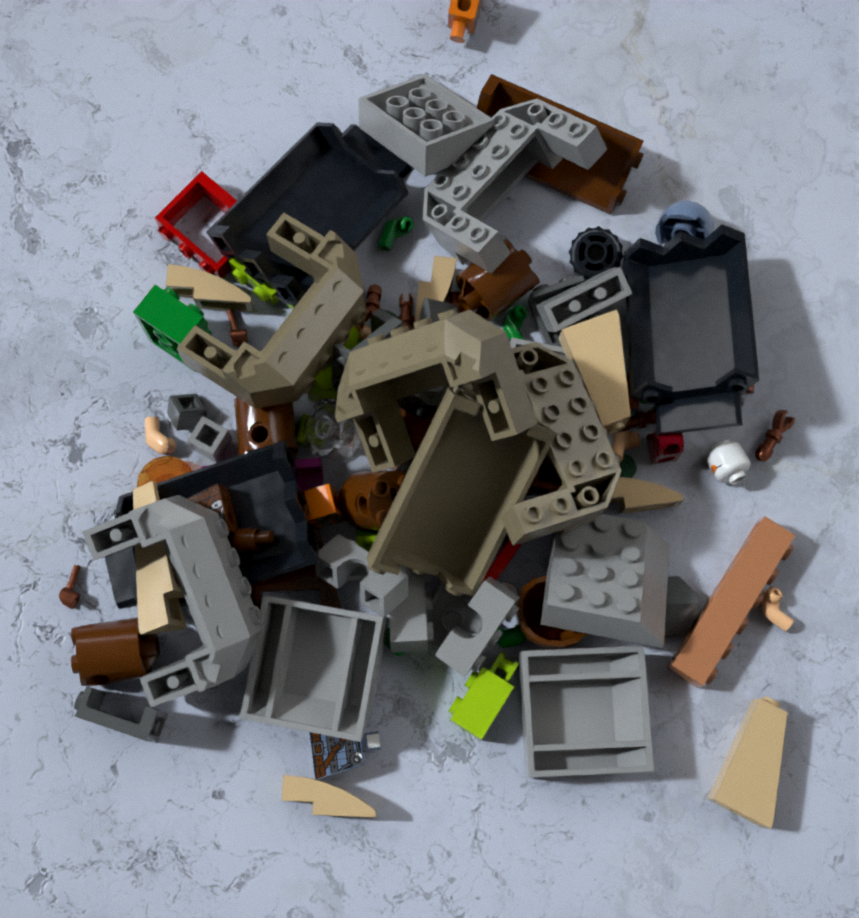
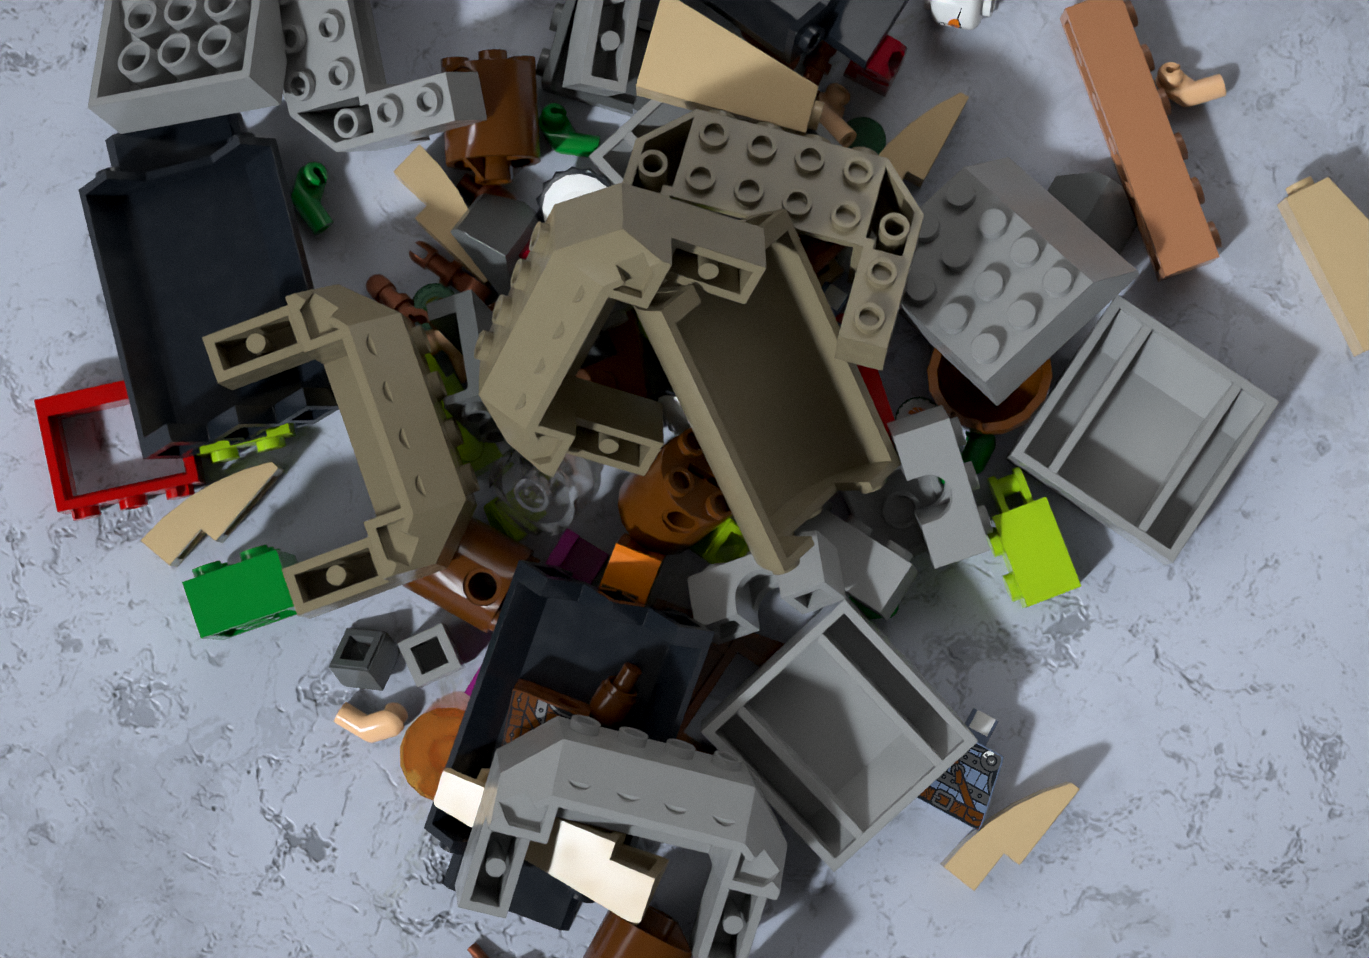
camera: 45 degrees left, 10 degrees up
(237, 336) = (308, 516): copper hand -> none

